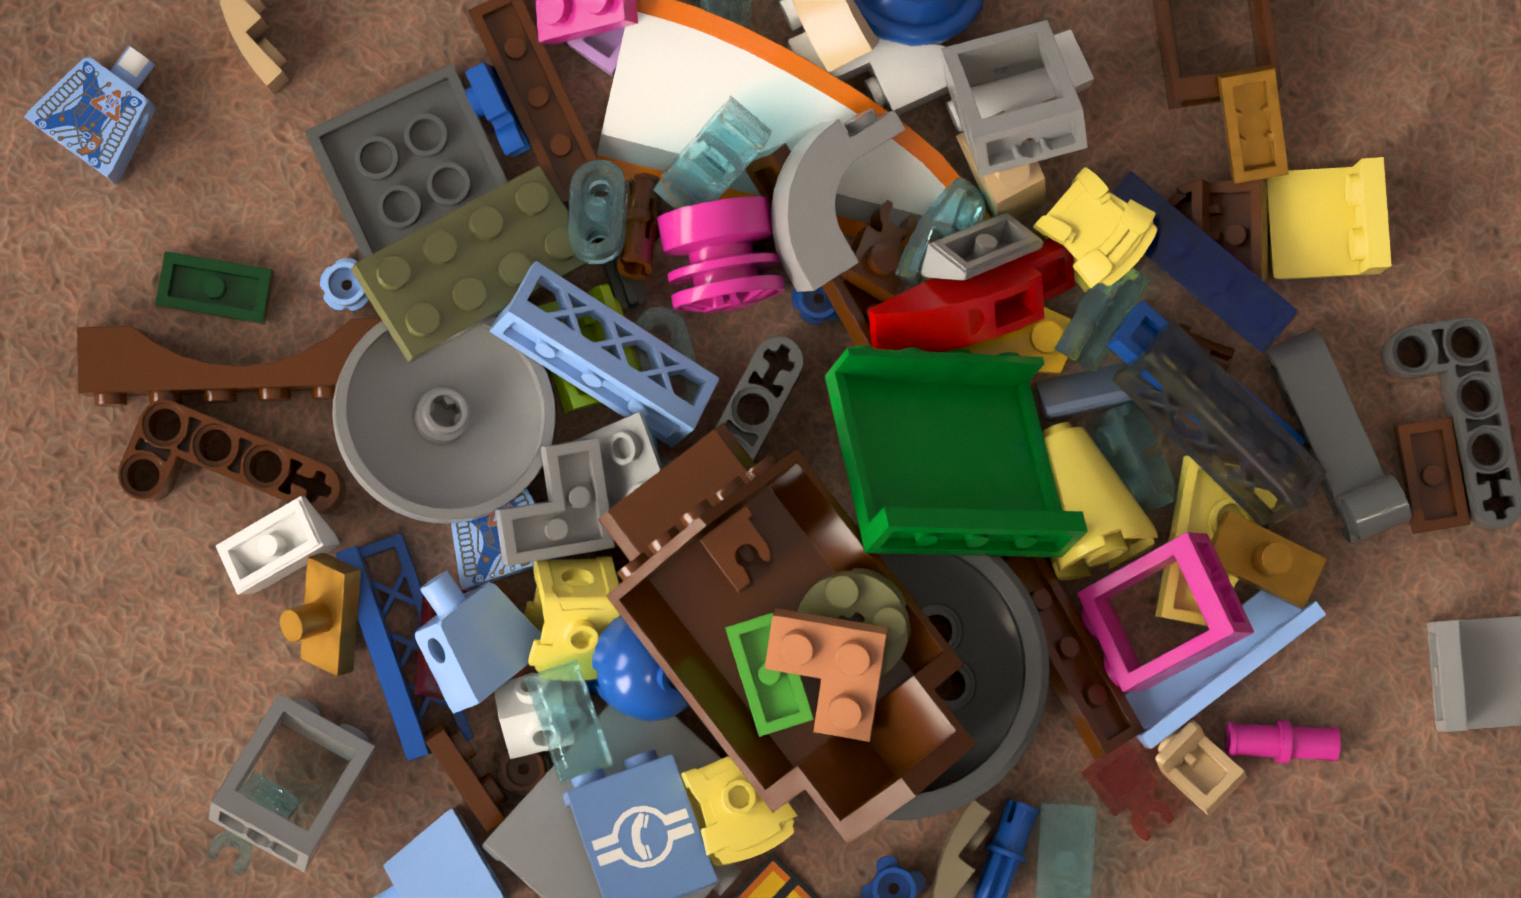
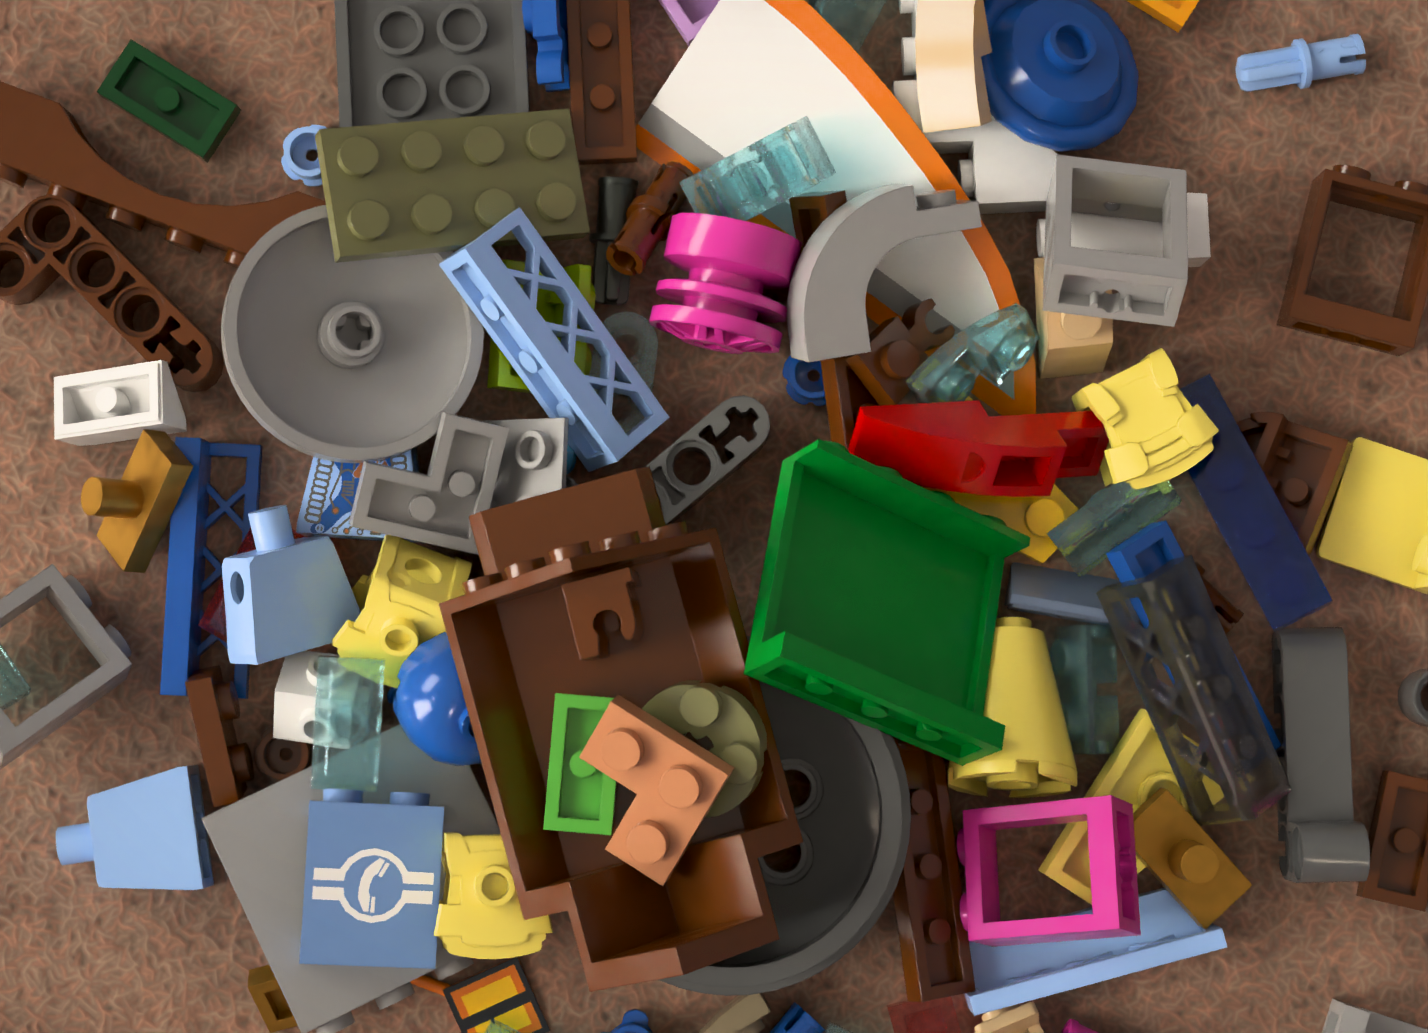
camera: 25 degrees right, 0 degrees up
(597, 216) = (606, 187): clear light blue plate -> none
(979, 248) = (1009, 390): light grey slope -> none
(1253, 124) = (1365, 376): pearl gold tile -> none

